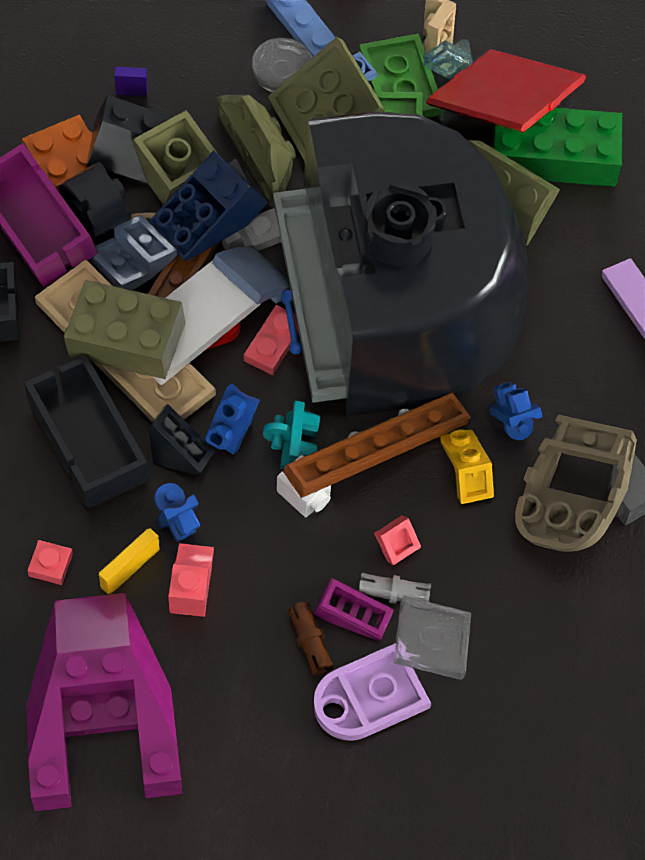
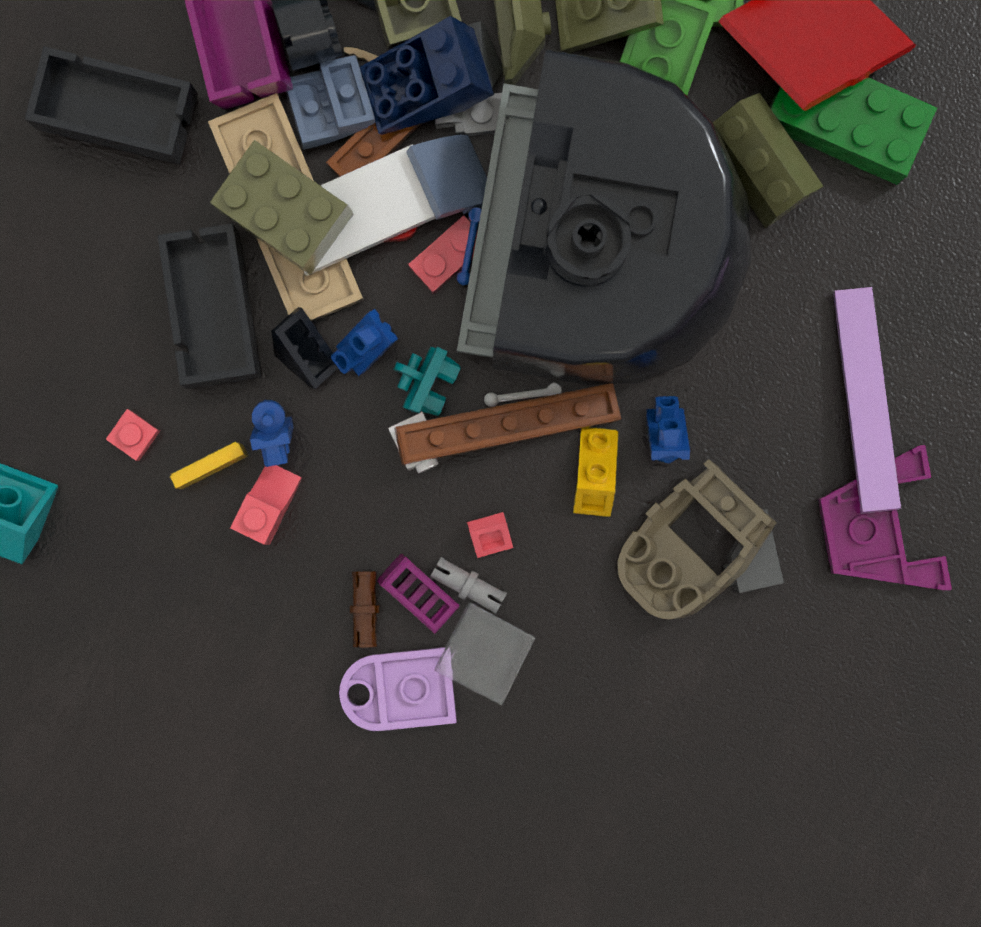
camera: 25 degrees right, 25 degrees up
(92, 680) = (139, 578): magenta wedge -> none

